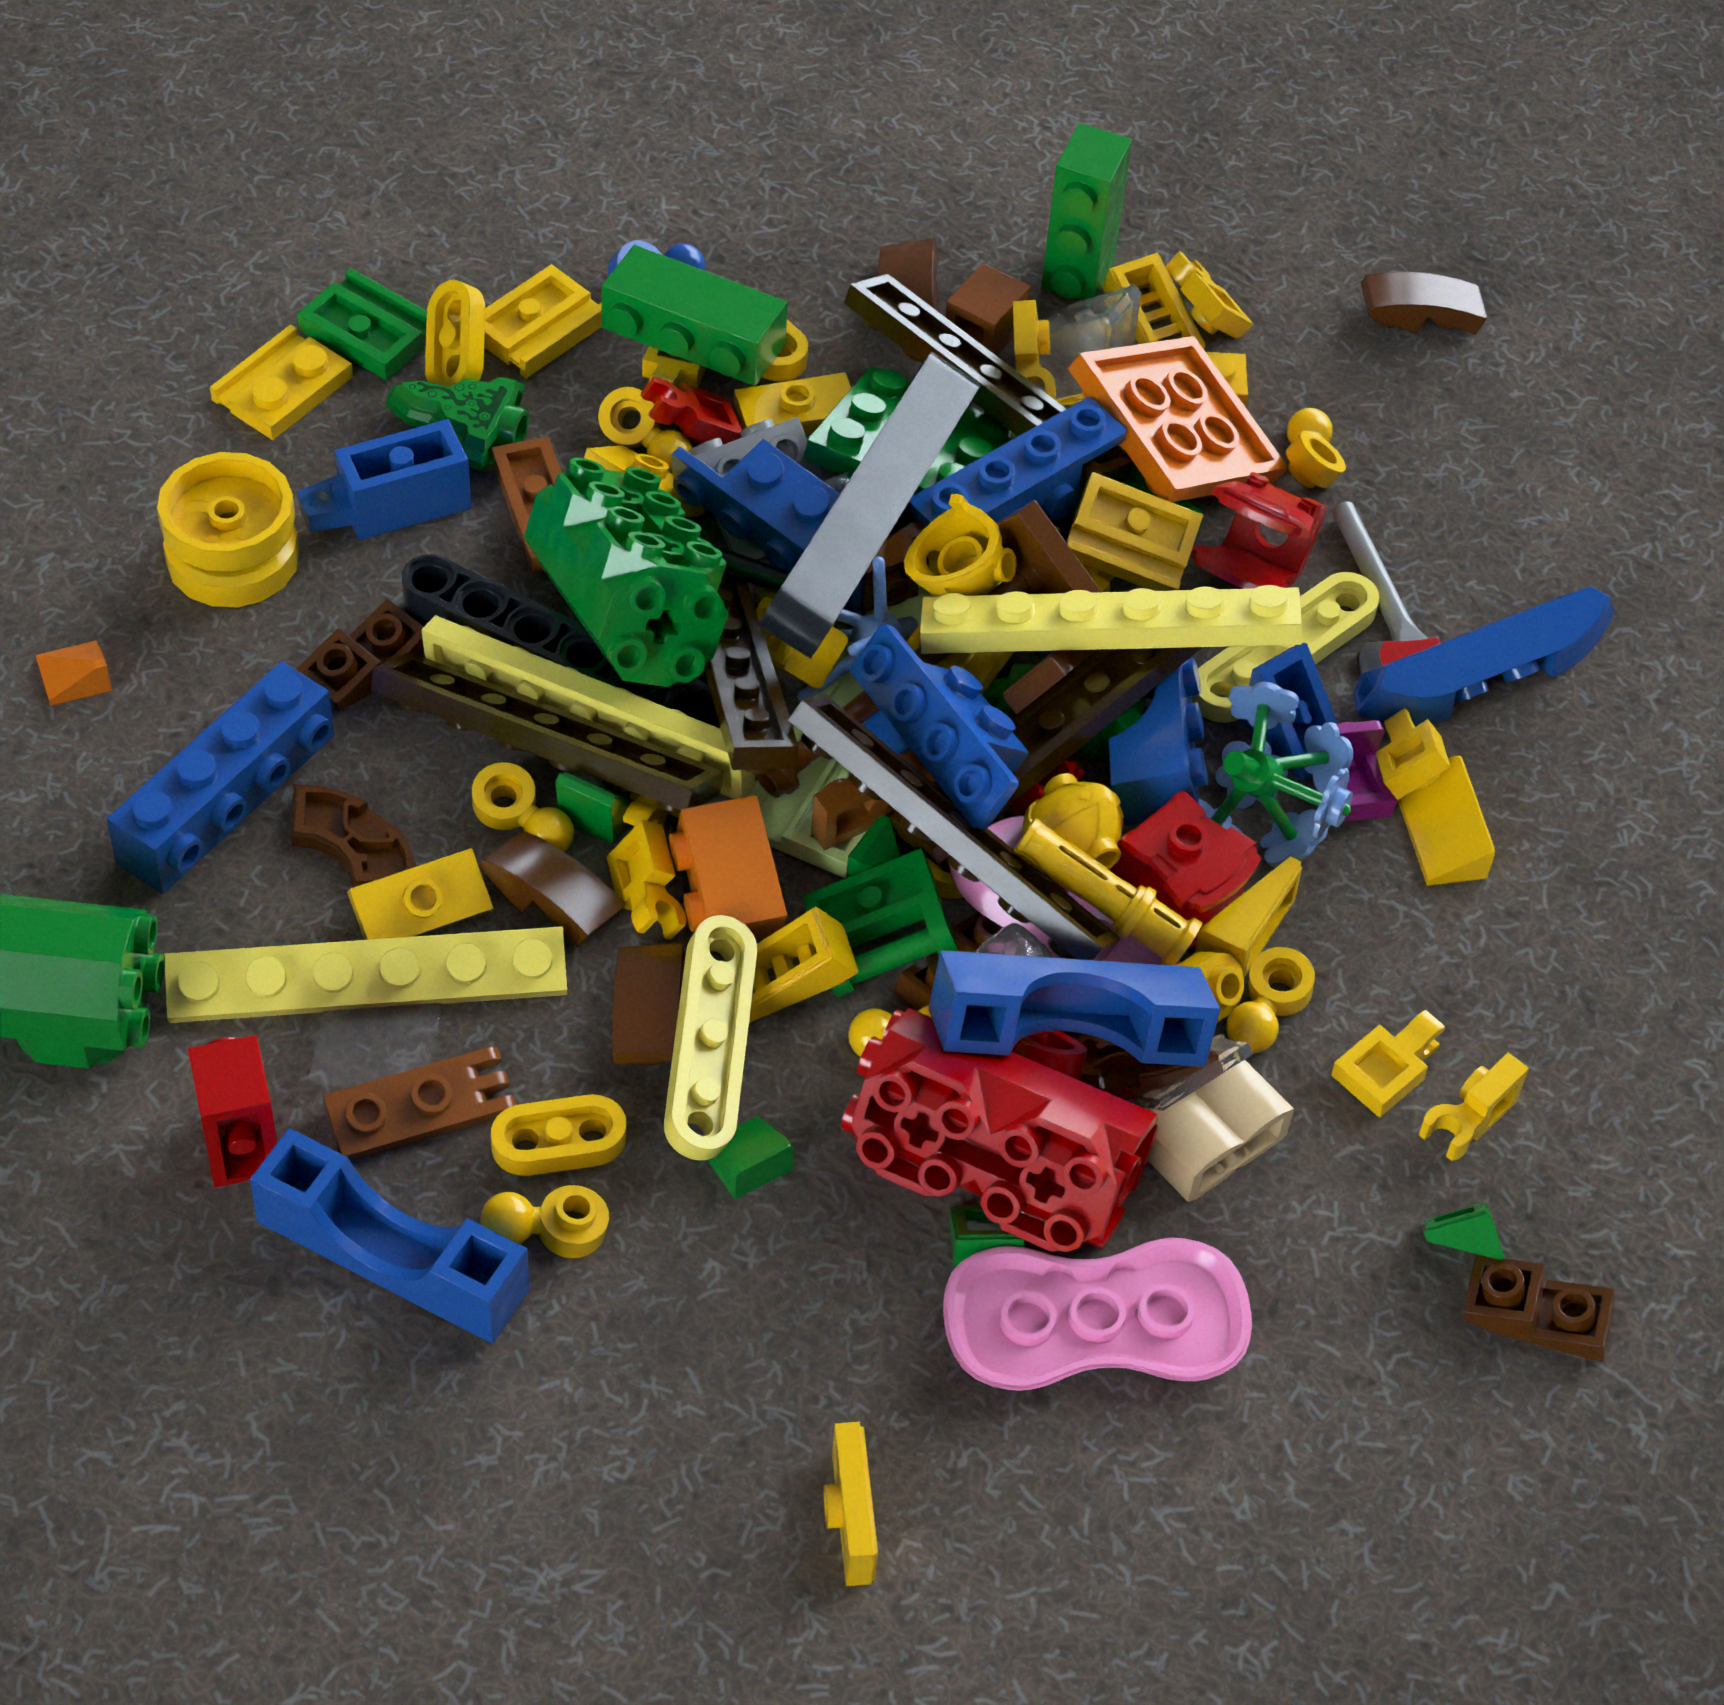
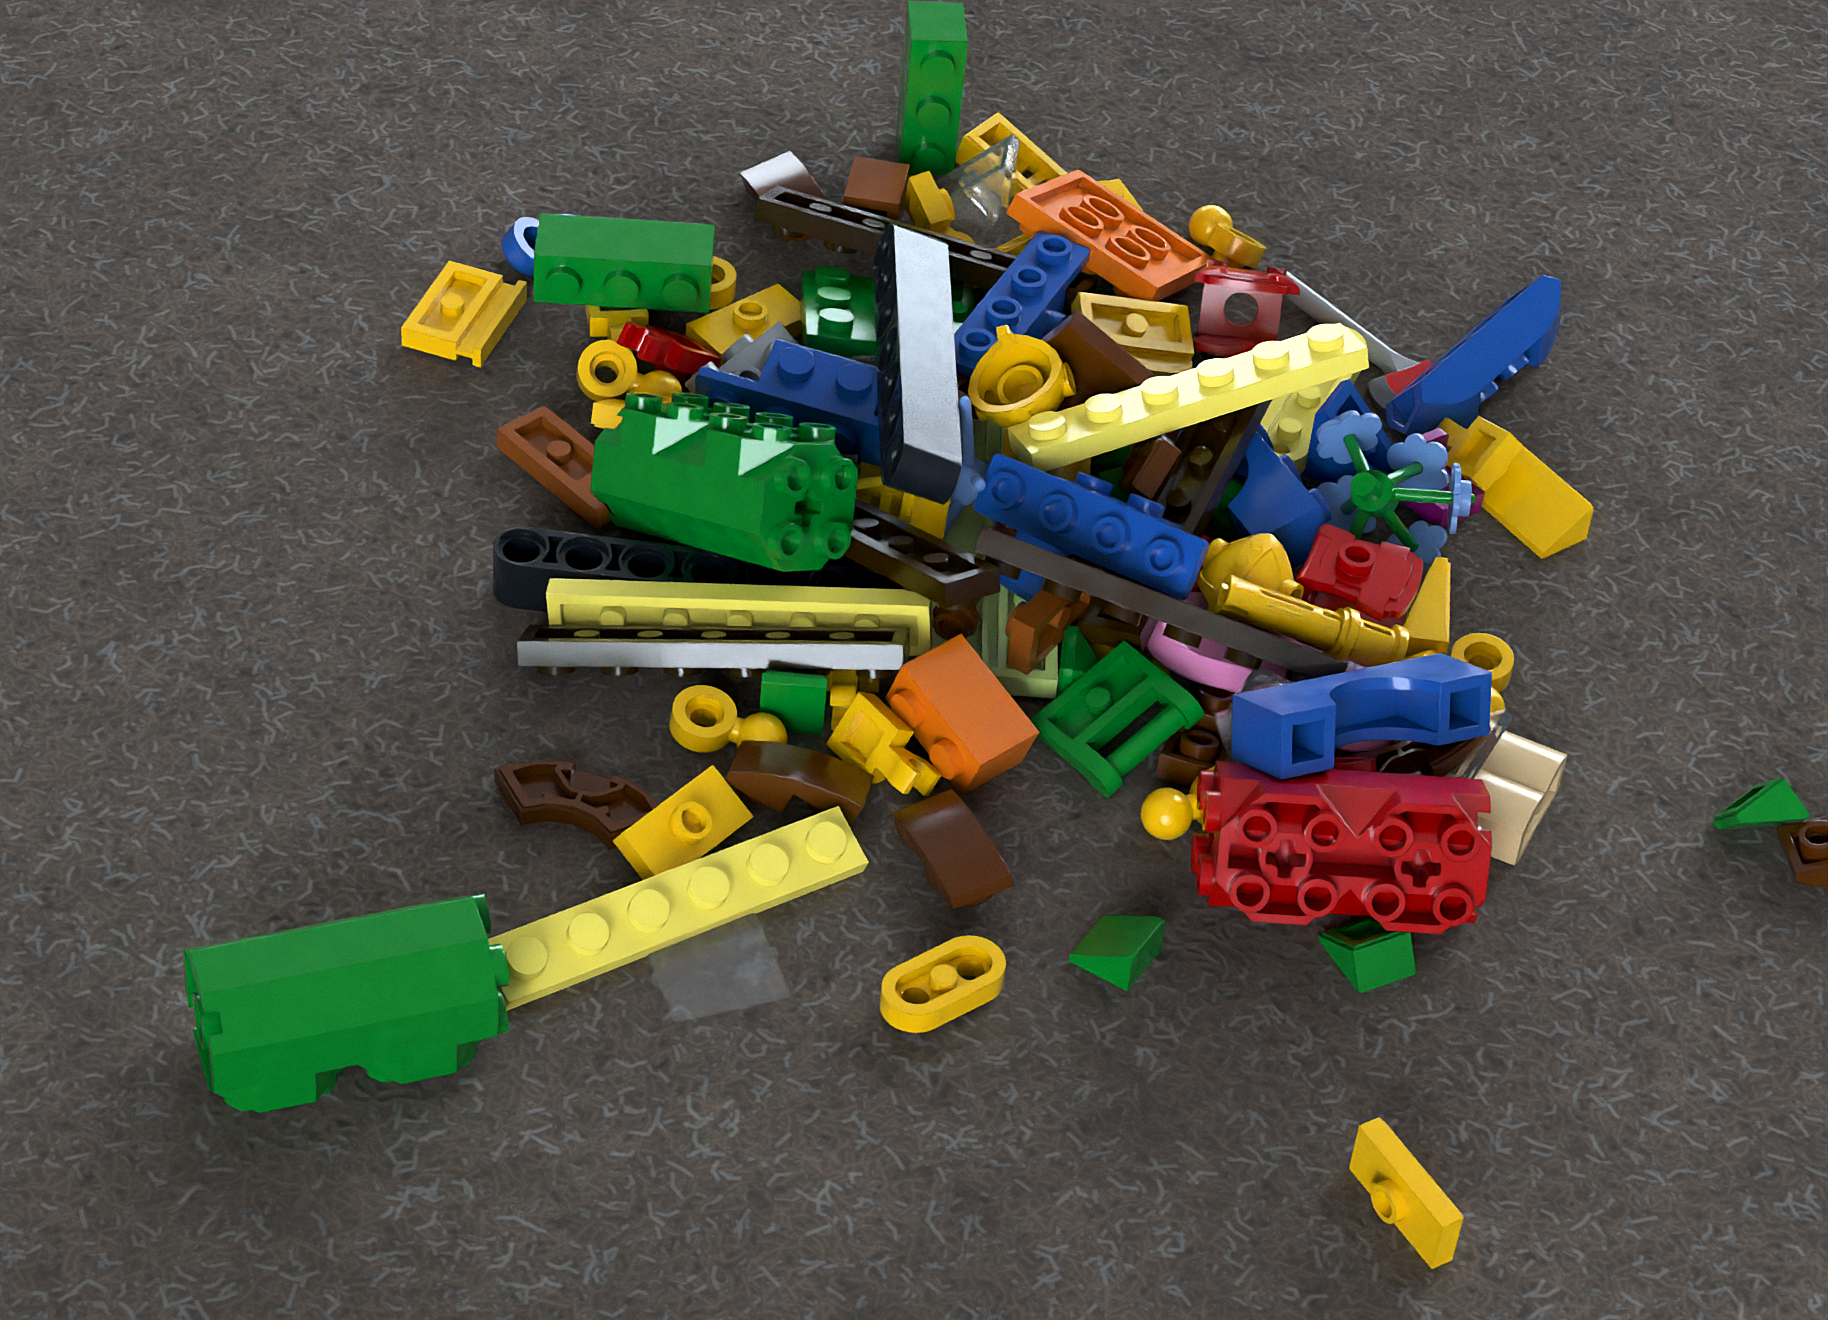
camera: 25 degrees left, 10 degrees down
(74, 672) = (210, 735): orange slope -> none
(221, 777) = (430, 779): blue brick -> none
(228, 529) = (295, 563): yellow wheel -> none
(233, 1107) = (648, 1048): red brick -> none
(281, 382) = (246, 431): yellow plate -> none
(347, 662) = (485, 644): reddish brown slope -> none
(366, 324) = (301, 358): green plate -> none
(391, 483) = (428, 480): blue hinge -> none
(417, 1104) = (792, 1002): dark orange hinge -> none
(450, 1271) = (933, 1125): blue arch -> none
(455, 334) = (403, 349): yellow plate -> none
(478, 411) = (448, 411): green rock -> none
(564, 1236) = (995, 1054): yellow plate -> none
(711, 1038) = (1037, 854): light yellow plate -> none
(823, 958) = (1054, 753): yellow slope -> none
(1041, 1317) = (1477, 988): bright pink plate -> none
(1212, 304) = (1066, 147): yellow plate -> none
(1387, 1067) = (1610, 704): yellow plate -> none
(1412, 297) = (1239, 96): reddish brown slope -> none
(1486, 1099) = (1704, 708): yellow plate -> none

